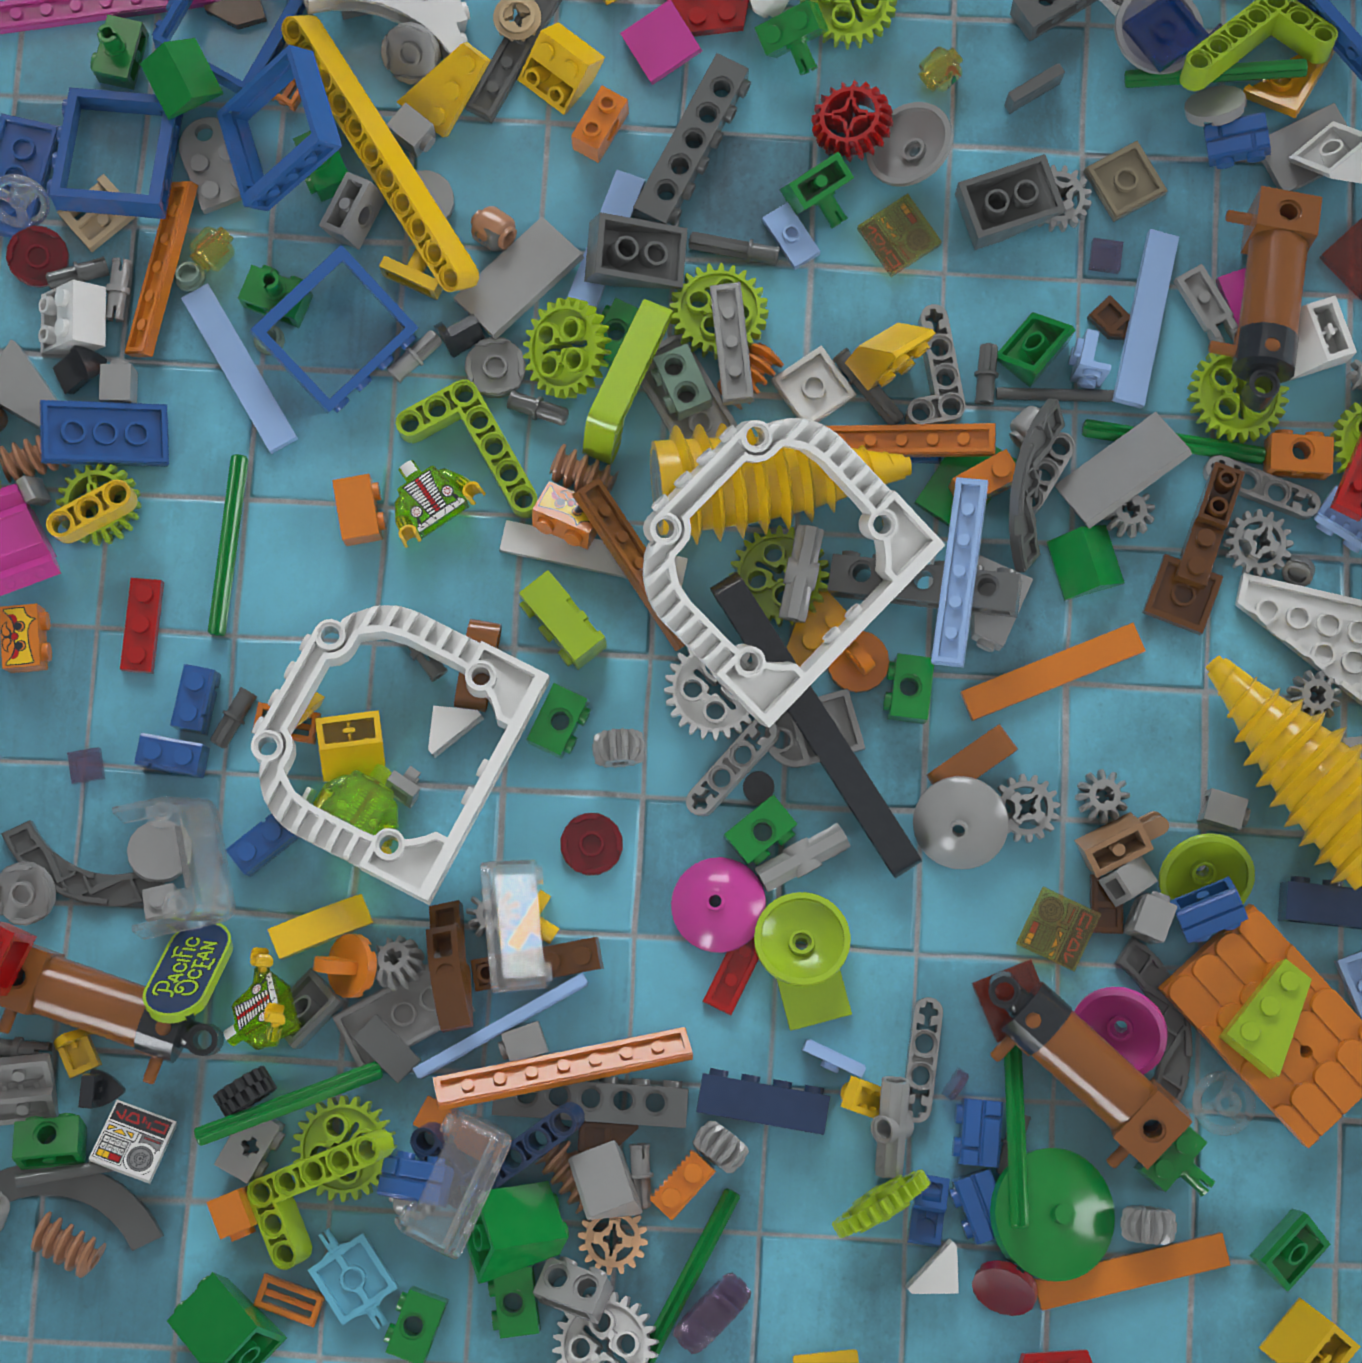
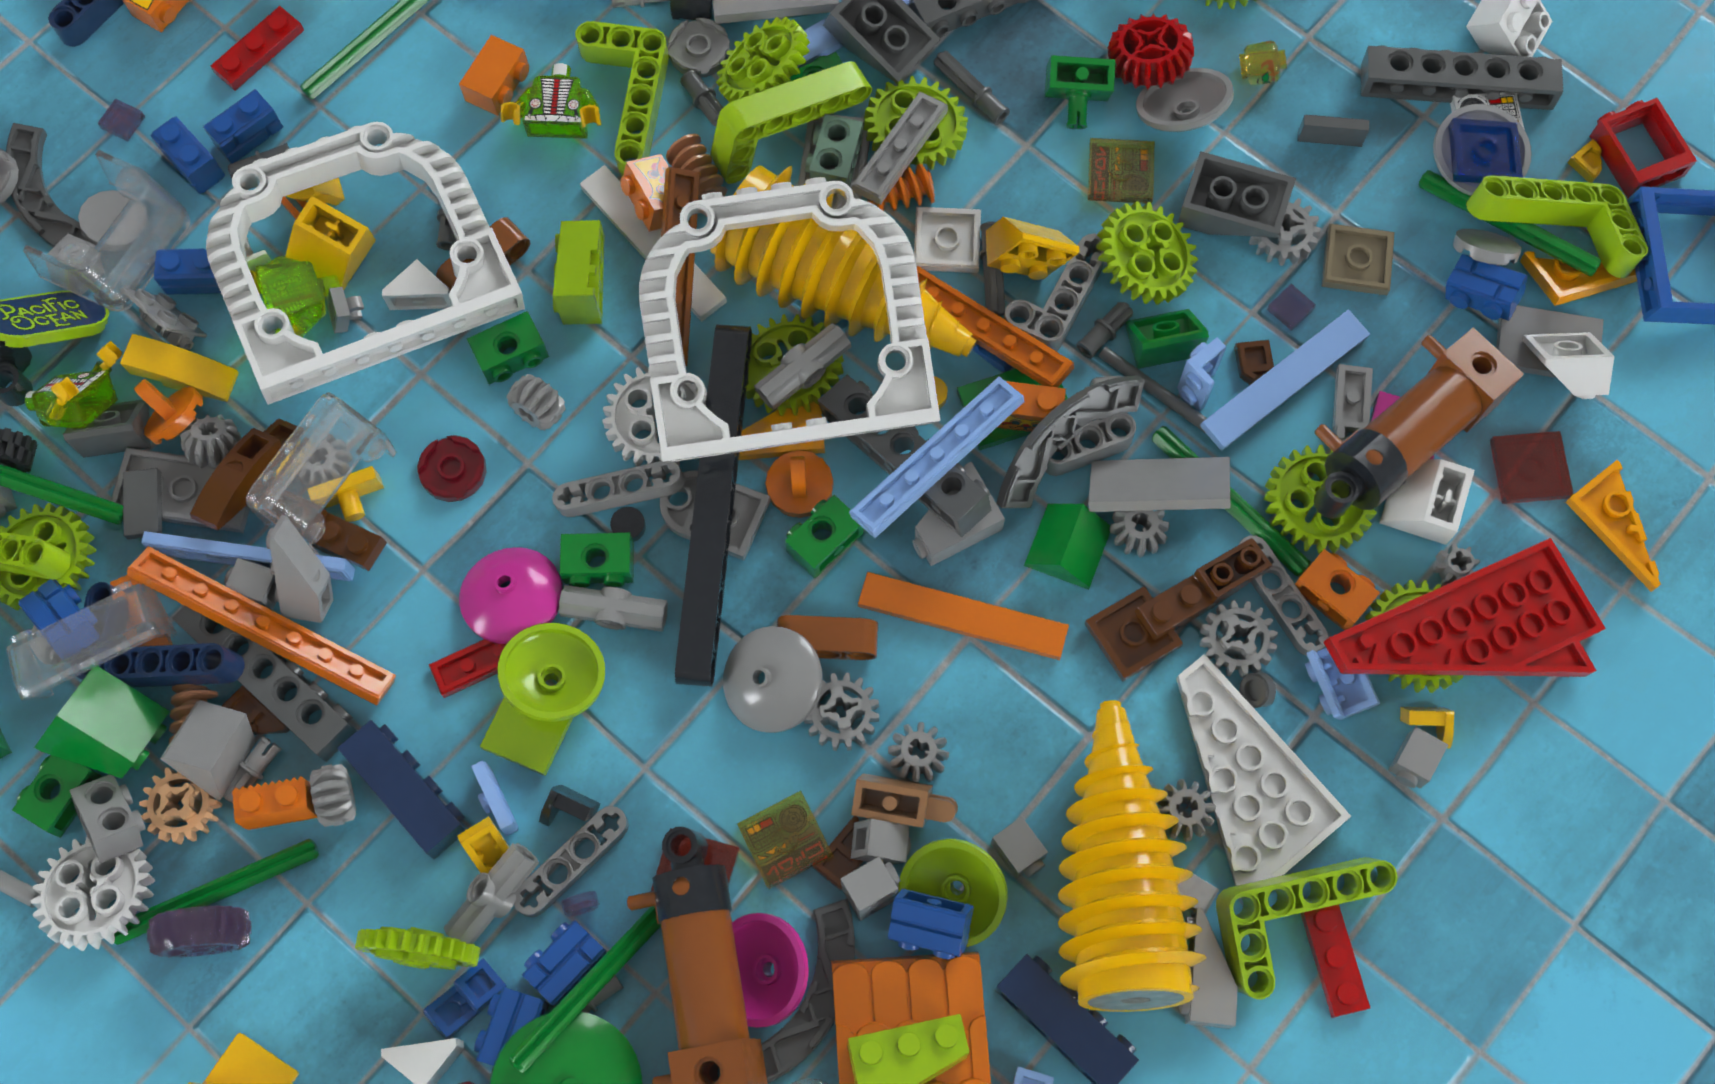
camera: 40 degrees right, 10 degrees down
(264, 893) = (165, 318): none -> light grey hinge
(561, 1013) = (300, 577): none -> light grey slope
(791, 236) = (1027, 110): light blue plate -> none
(889, 1020) = (568, 801): none -> black tile
(975, 292) = (1146, 253): none -> lime gear

